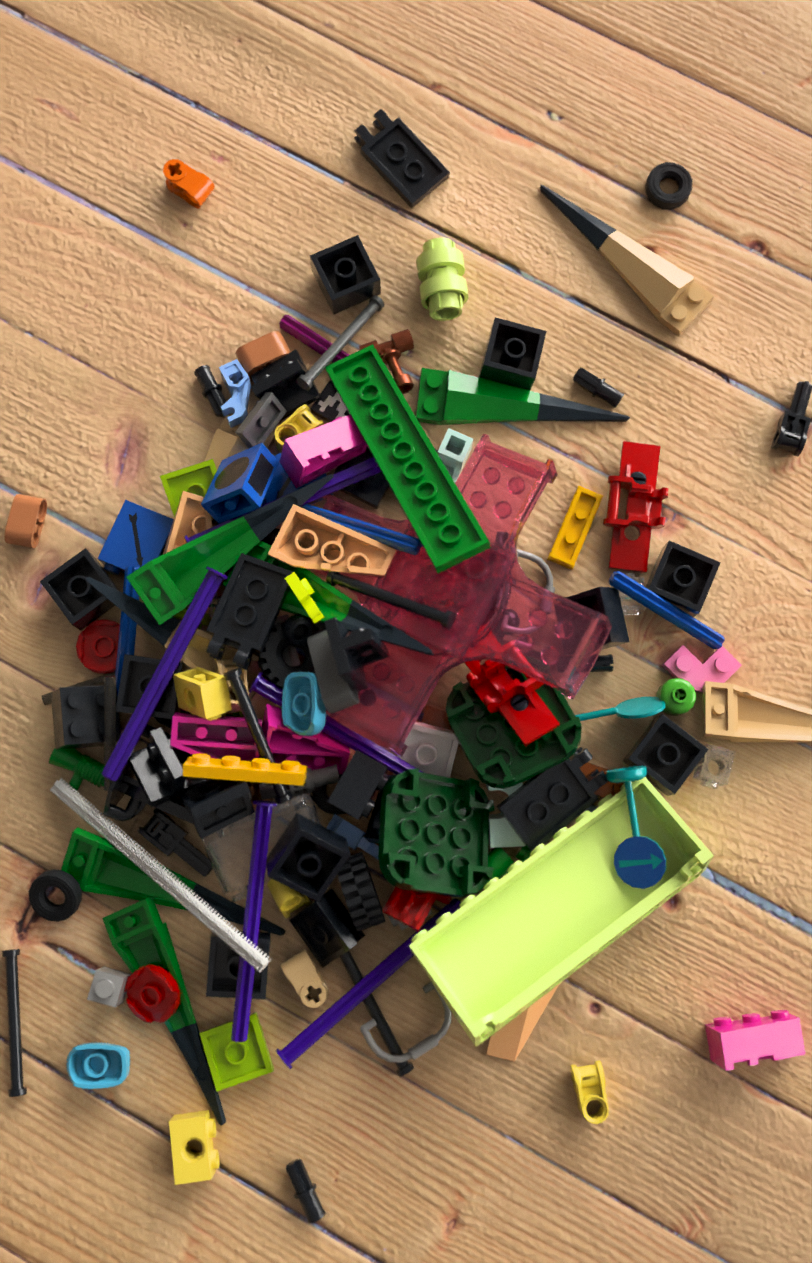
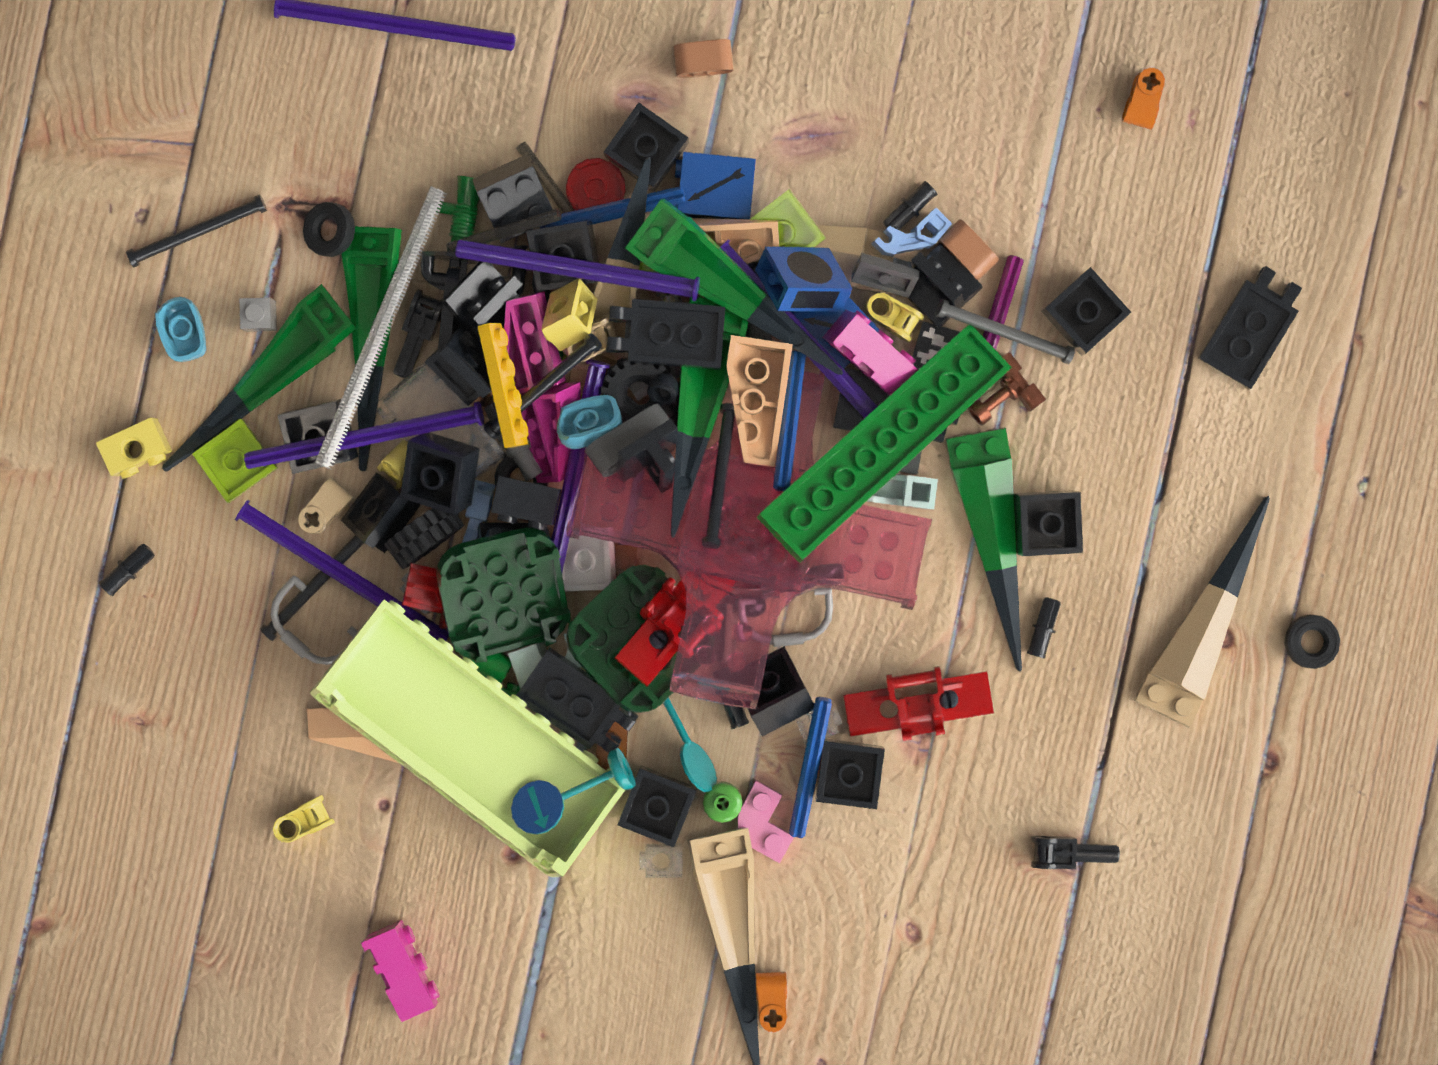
camera: 70 degrees right, 10 degrees up
(152, 994) = (264, 359): red tile -> none
(303, 591) = (701, 384): neon yellow plate -> none
(441, 273) = (1125, 414): yellowish green piece -> none
(575, 527) = (877, 646): yellow tile -> none

